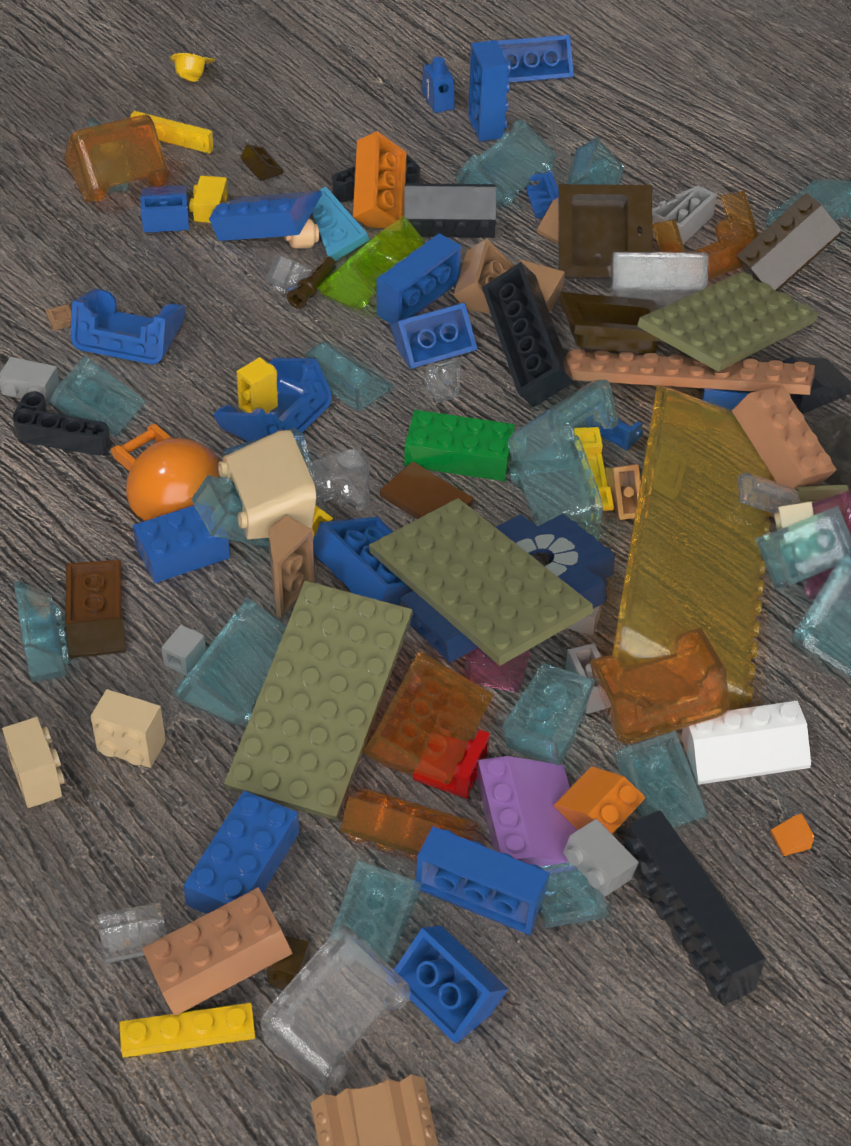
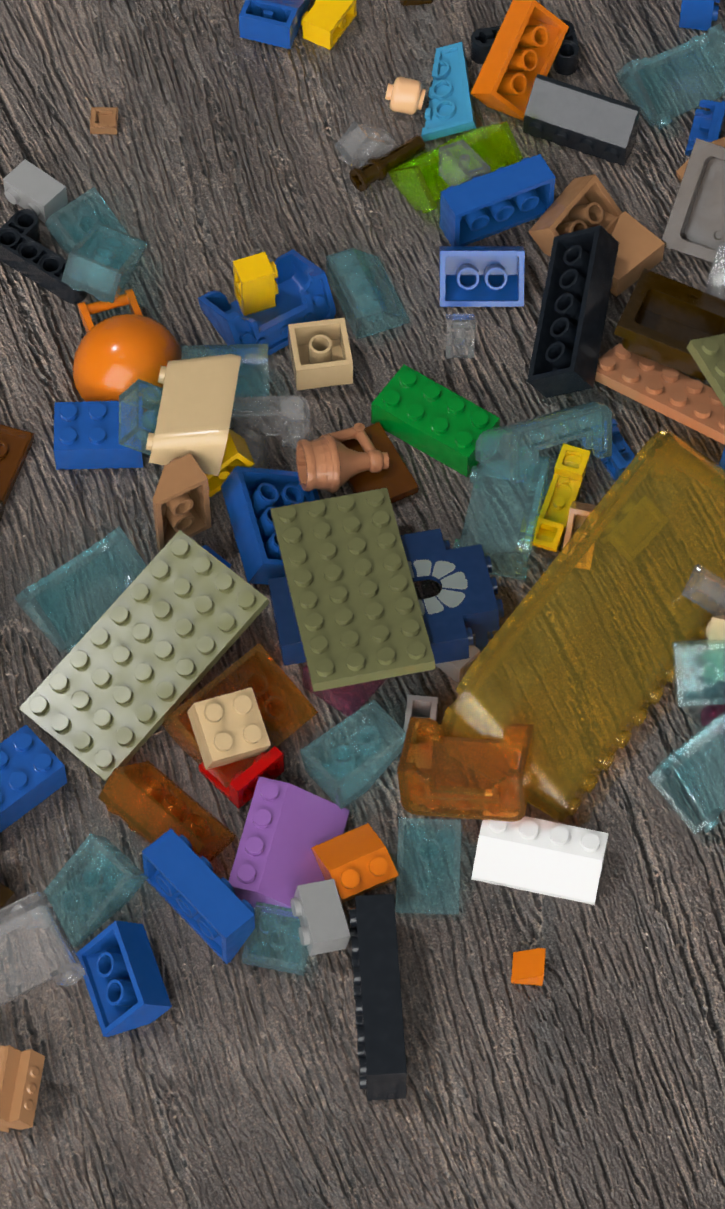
camera: 25 degrees right, 10 degrees up
(104, 331) = (155, 161): blue windscreen -> none
(120, 410) = (103, 262): none -> clear light blue slope
(183, 649) = (46, 553): light grey brick -> none
(263, 215) = (374, 59): blue slope -> none
(338, 424) = (320, 353): none -> tan brick
(376, 260) = (460, 163): none -> clear slope
(395, 500) = (330, 464): none -> nougat piece
(432, 727) = (228, 728): none -> tan brick

